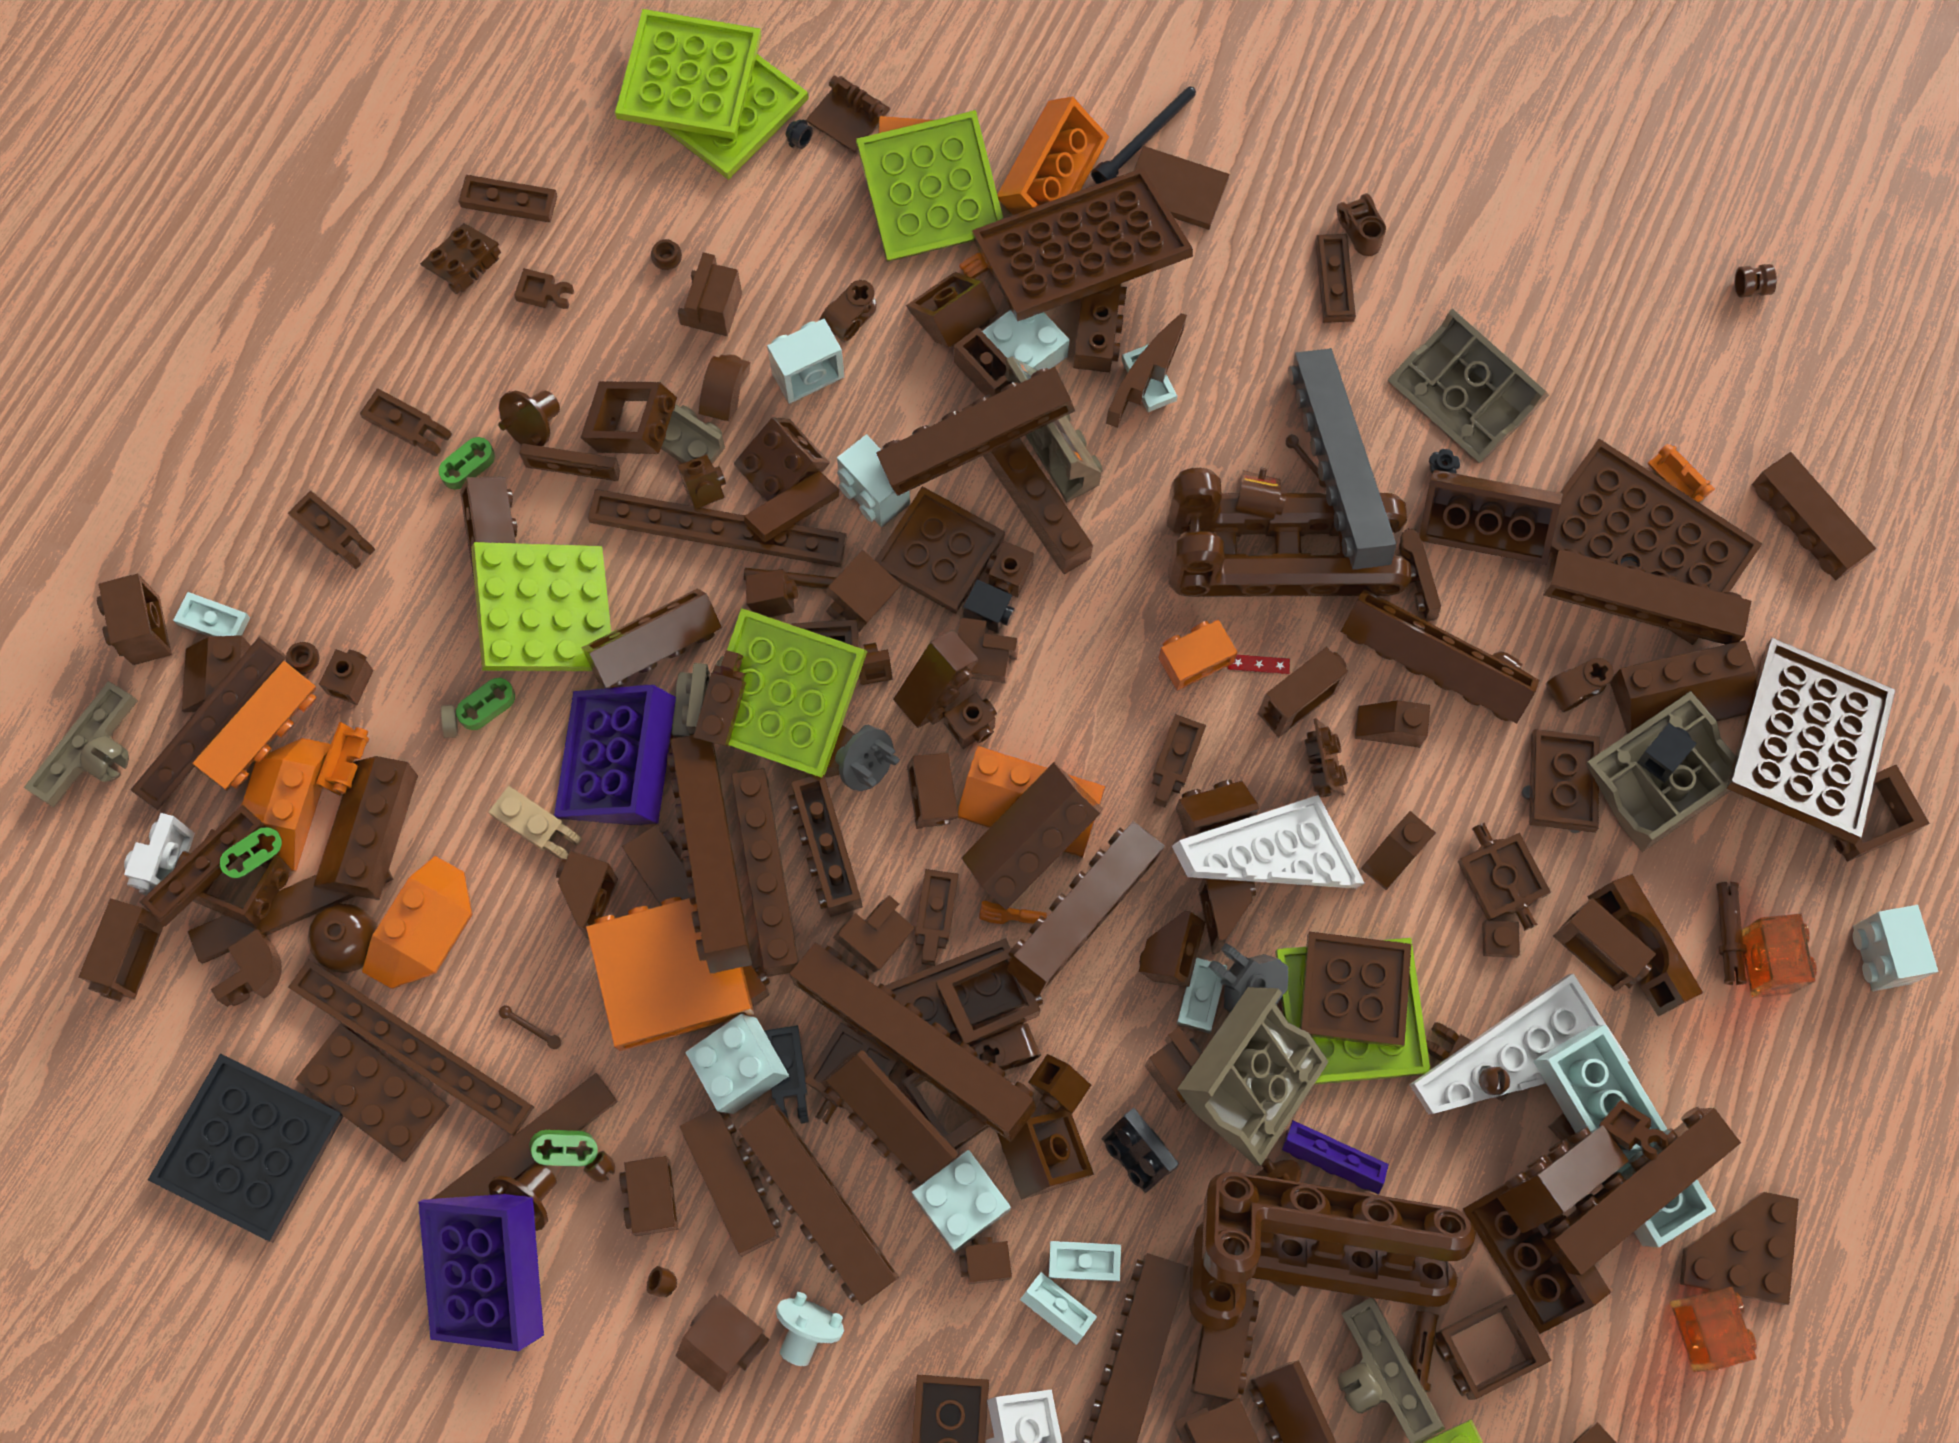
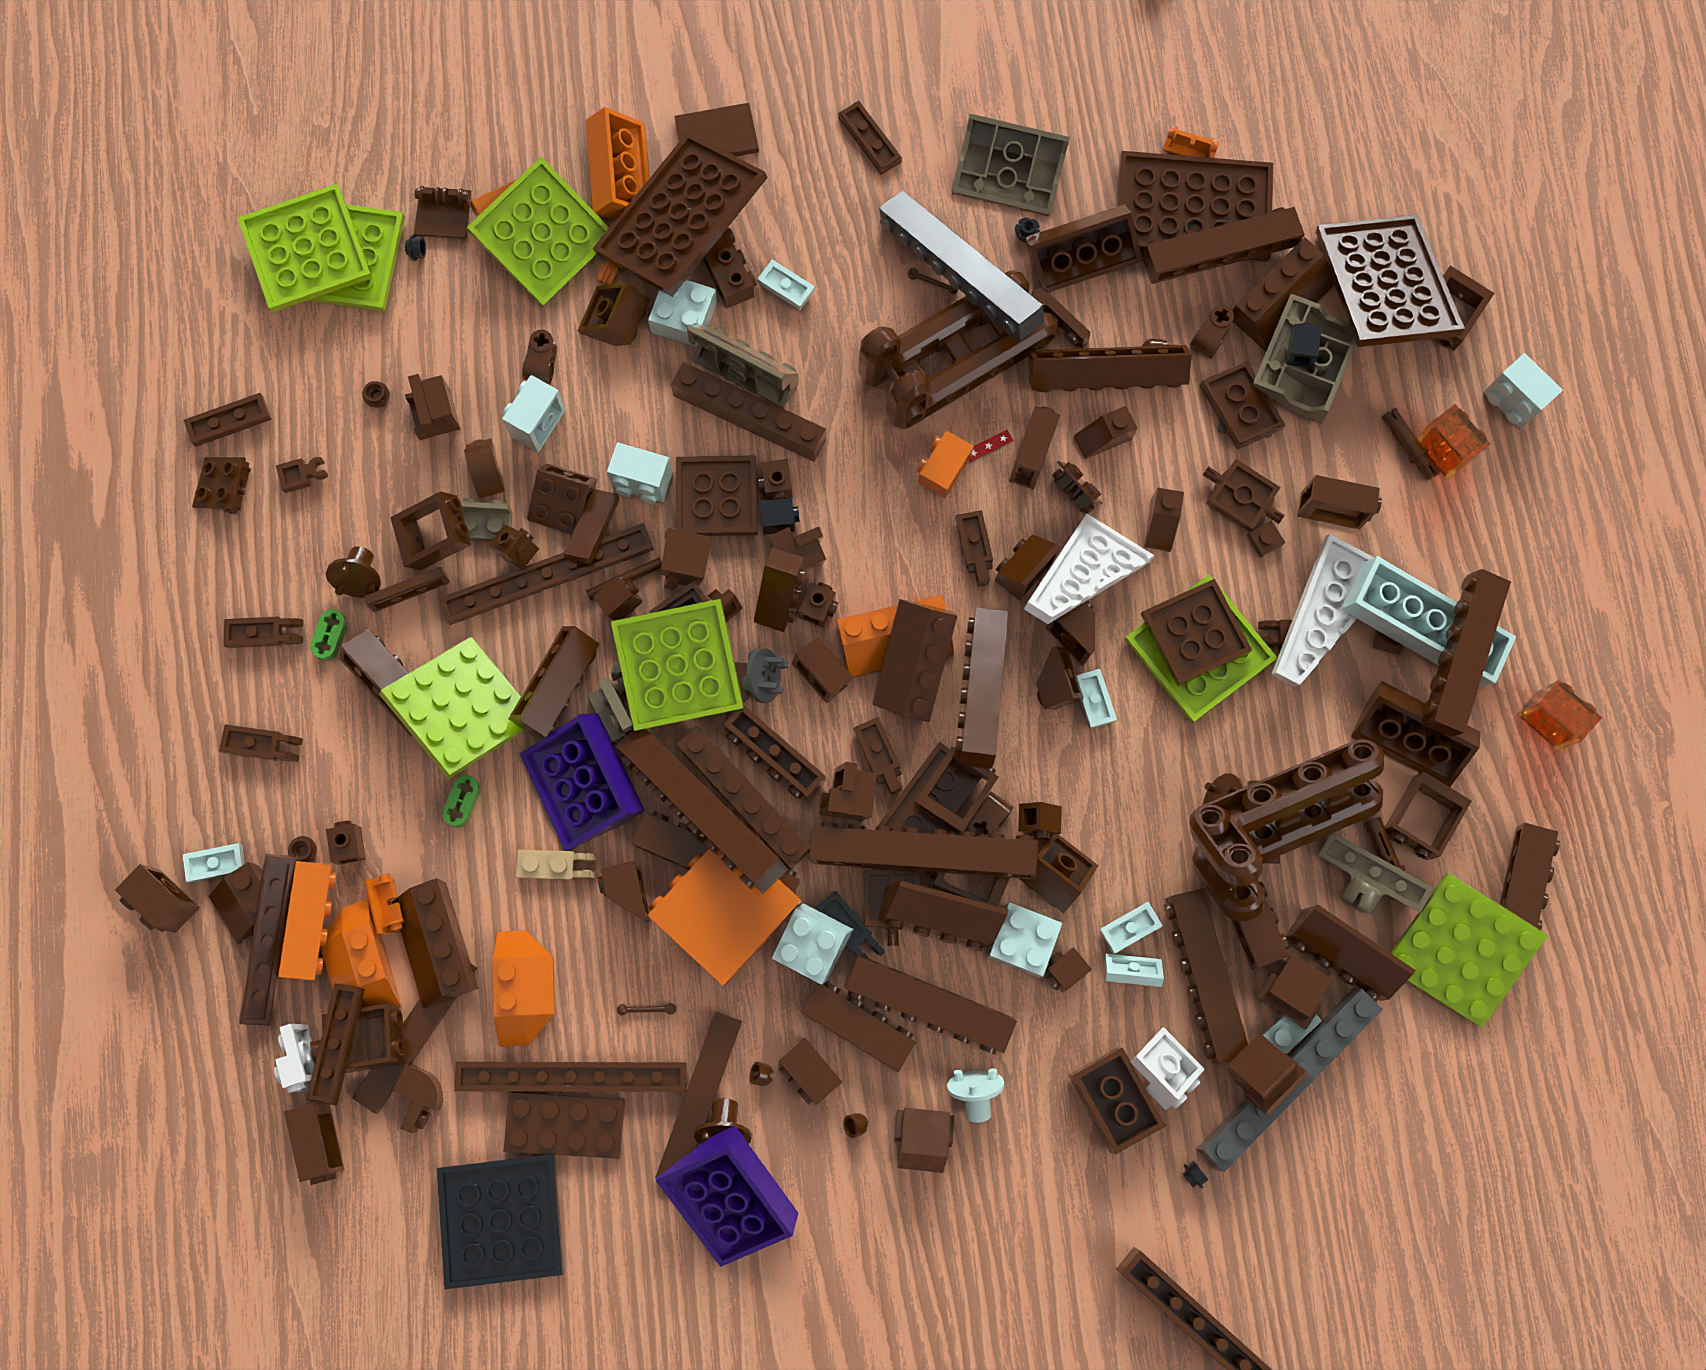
camera: 35 degrees left, 5 degrees up
(86, 747) = (183, 1013): dark tan plate -> none
(246, 845) = (359, 1011): bright green beam -> none
(341, 937) = (469, 1031): reddish brown cylinder -> none
(449, 721) = (444, 830): dark tan tile -> none
(563, 1156) = (724, 1073): bright green beam -> none
(721, 701) = (638, 697): reddish brown hinge -> none
(975, 430) = (698, 394): reddish brown brick -> none
(981, 362) = (664, 342): reddish brown brick -> none
(997, 914) = (923, 728): orange piece -> none
(1109, 169) = (660, 149): black piece -> none
(1139, 1151) = (1122, 830): black plate -> none
(1150, 364) = (784, 274): reddish brown slope -> none
(1173, 1063) = (1116, 758): reddish brown plate -> none
(1253, 1075) = (1169, 732): dark tan piece -> none
(1255, 972) = (1123, 669): dark grey hinge -> none
(1260, 495) = (921, 324): reddish brown door -> none
(1335, 1157) = (1250, 753): dark purple plate -> none
(1362, 219) = (863, 84): reddish brown piece -> none
(1489, 1080) = (1325, 638): reddish brown hinge -> none
(1563, 1178) = (1412, 676): reddish brown brick -> none
(1631, 1128) = (1435, 615): reddish brown plate -> none
(1670, 979) = (1397, 501): reddish brown arch -> none
(1747, 1251) = (1545, 650): reddish brown plate -> none
(1813, 516) = (1294, 124): reddish brown brick -> none

